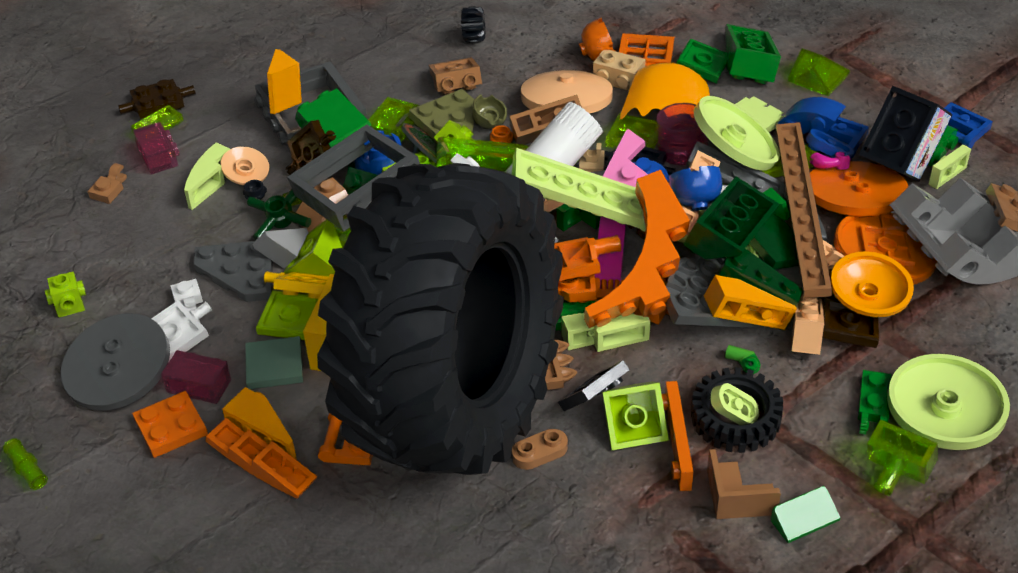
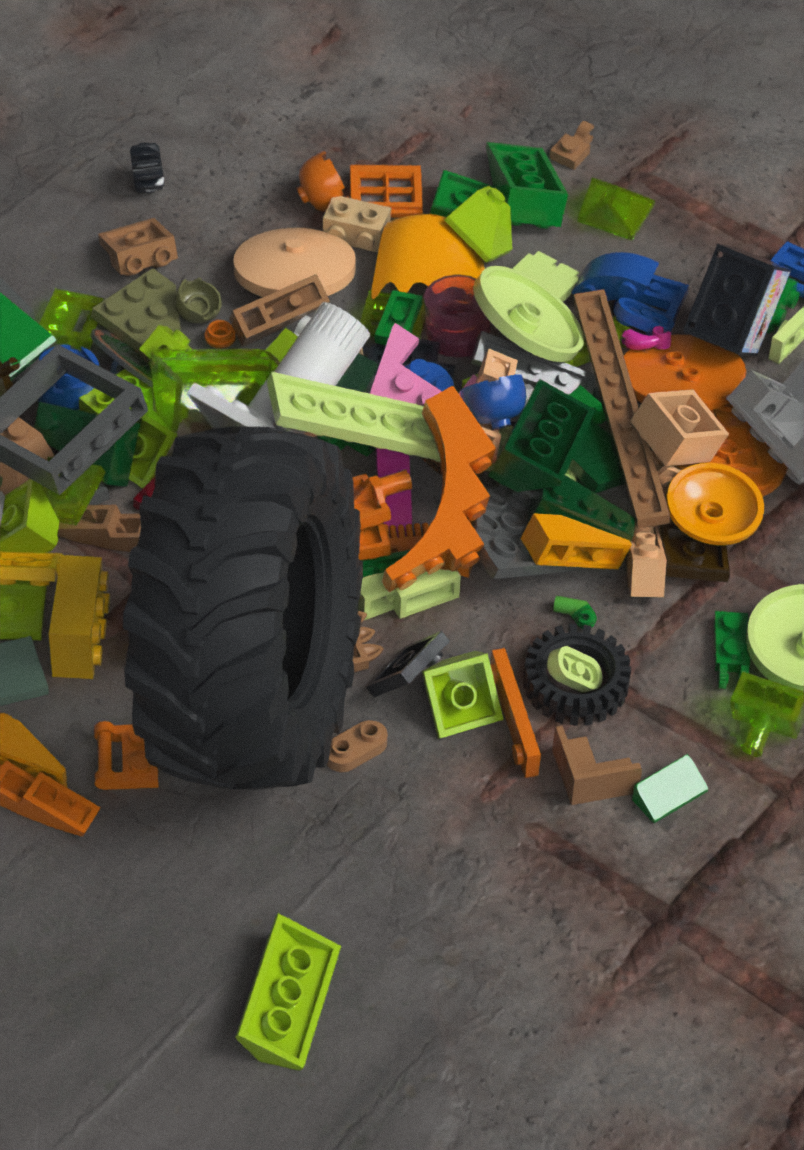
camera: 15 degrees left, 5 degrees up
(593, 161) = (358, 374): none -> clear green slope
(641, 125) = (401, 309): none -> green plate
(713, 72) = (484, 223): none -> lime slope
(791, 34) = (573, 150): none -> medium nougat plate
(847, 222) = (679, 427): none -> light nougat brick

